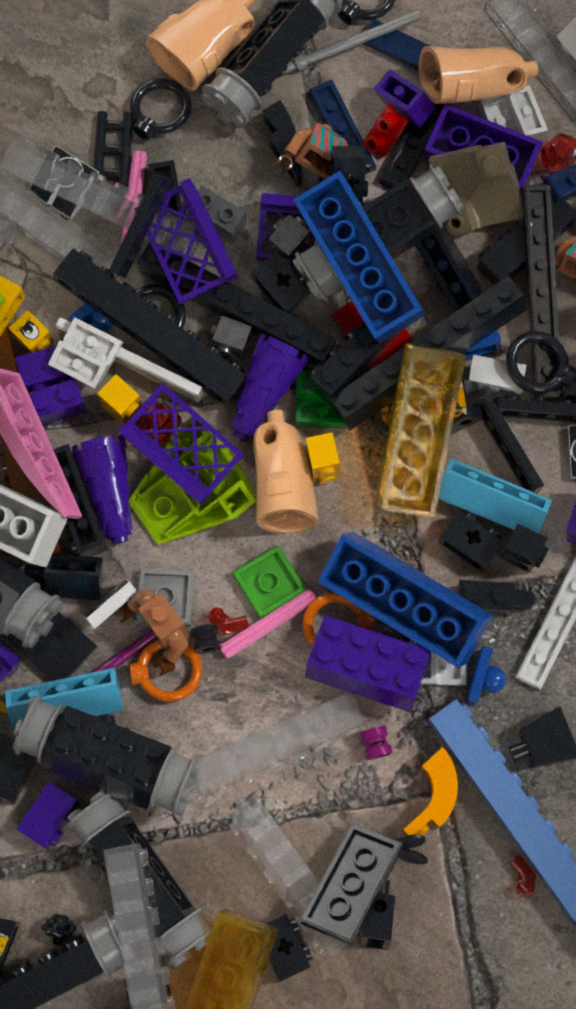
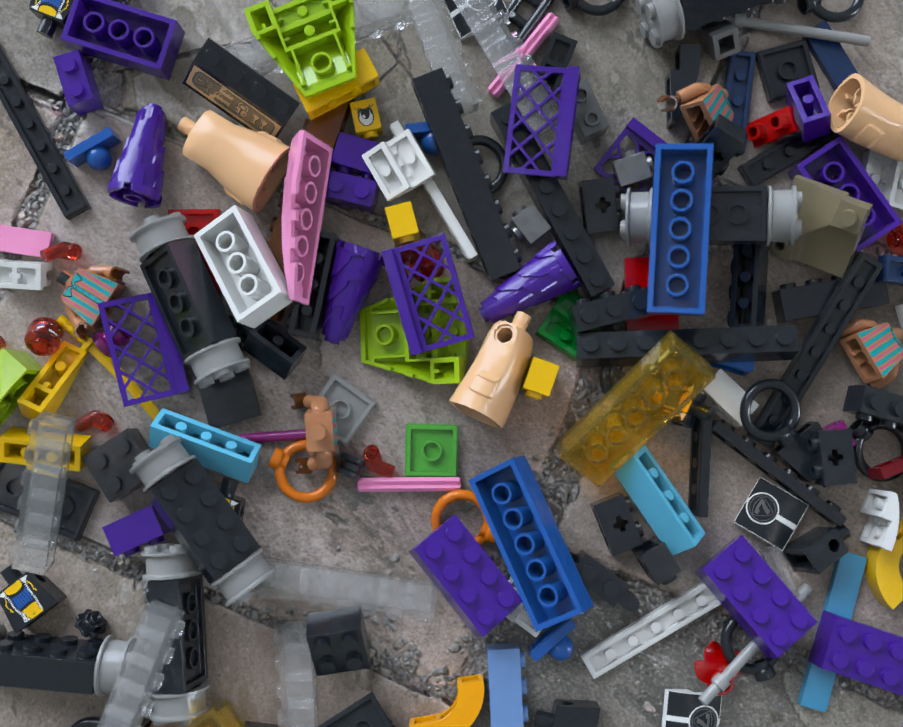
camera: 30 degrees right, 10 degrees up
(110, 603) = (287, 391): white slope -> none
(140, 225) = (511, 82): black tile -> none
(293, 793) = (338, 640): none -> black brick
(294, 86) = (720, 39): none -> flat silver brick
(362, 75) = (782, 66): none -> black tile
(375, 736) = (433, 638): magenta wheel -> none

